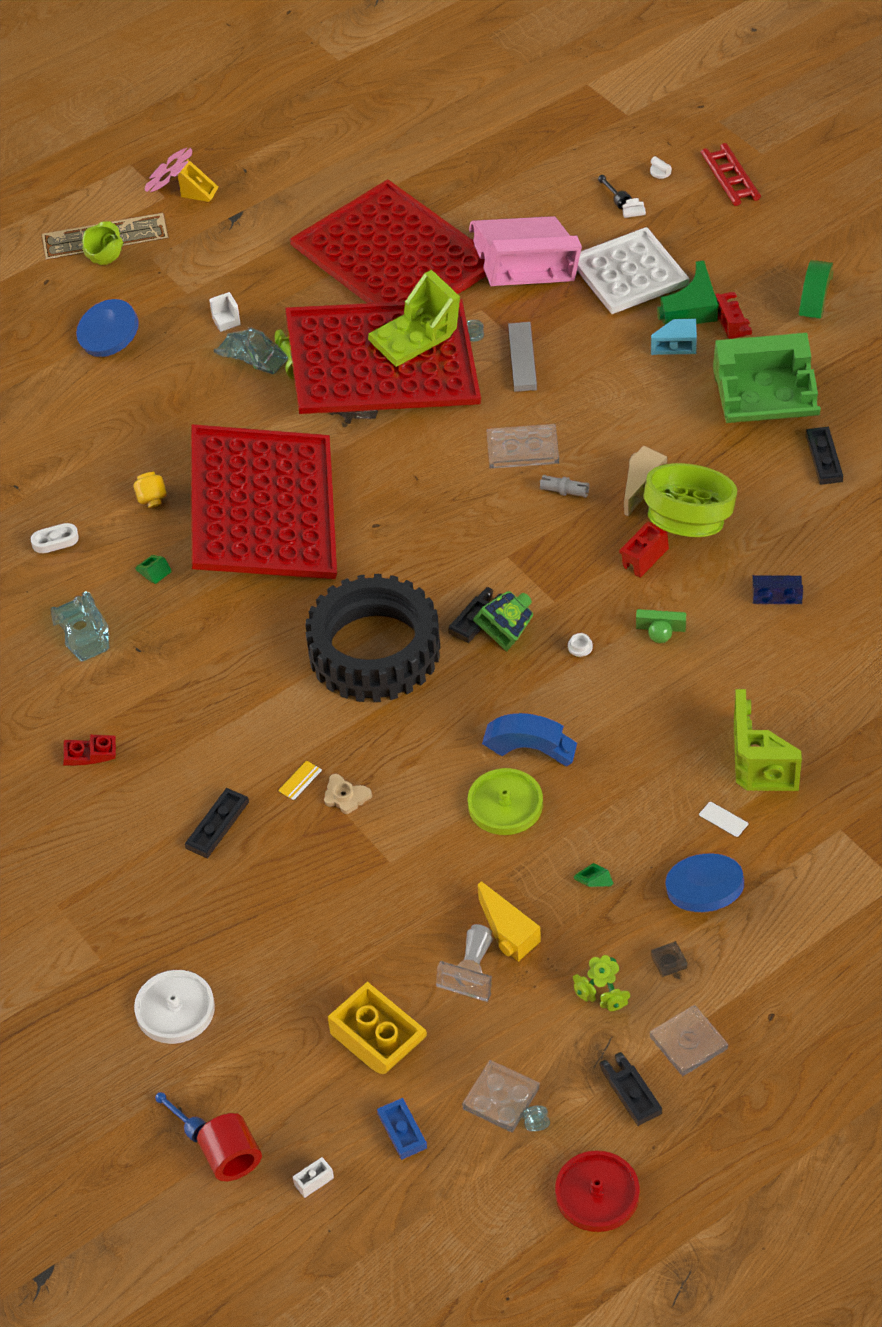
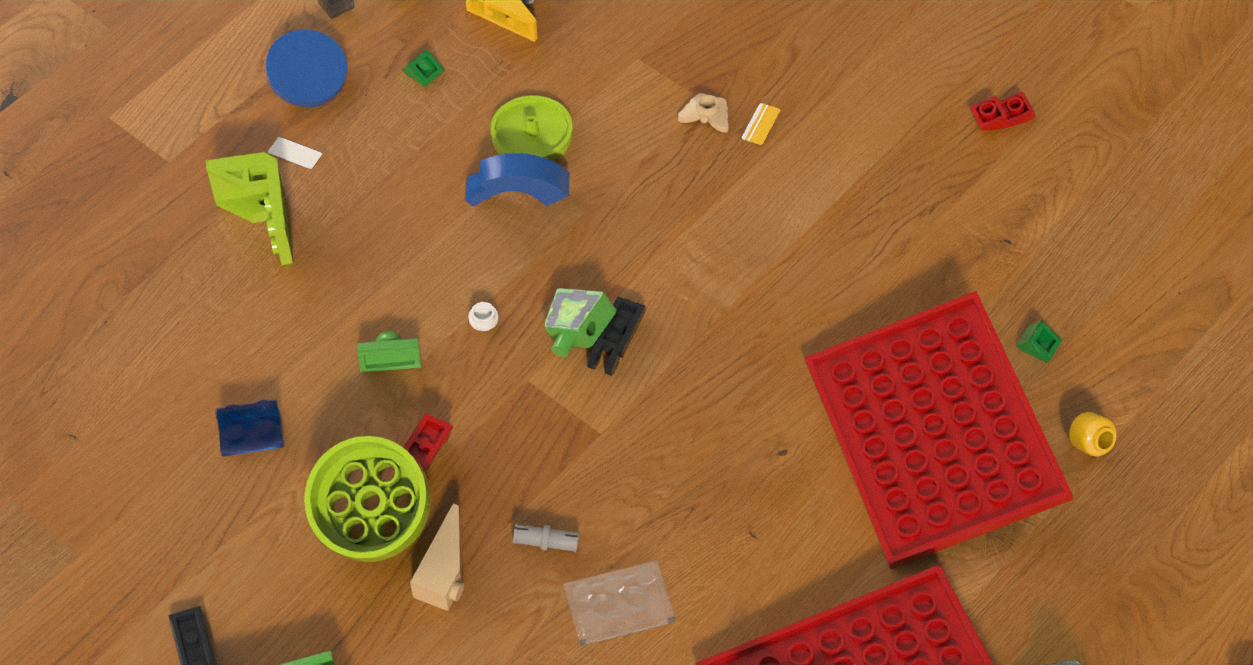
camera: 165 degrees right, 5 degrees up
(54, 538) = (1178, 355): white plate -> none
(89, 640) = (1079, 237): clear light blue piece -> none
(216, 823) = (831, 64): black tile -> none
(377, 676) = (729, 217): black tyre -> none

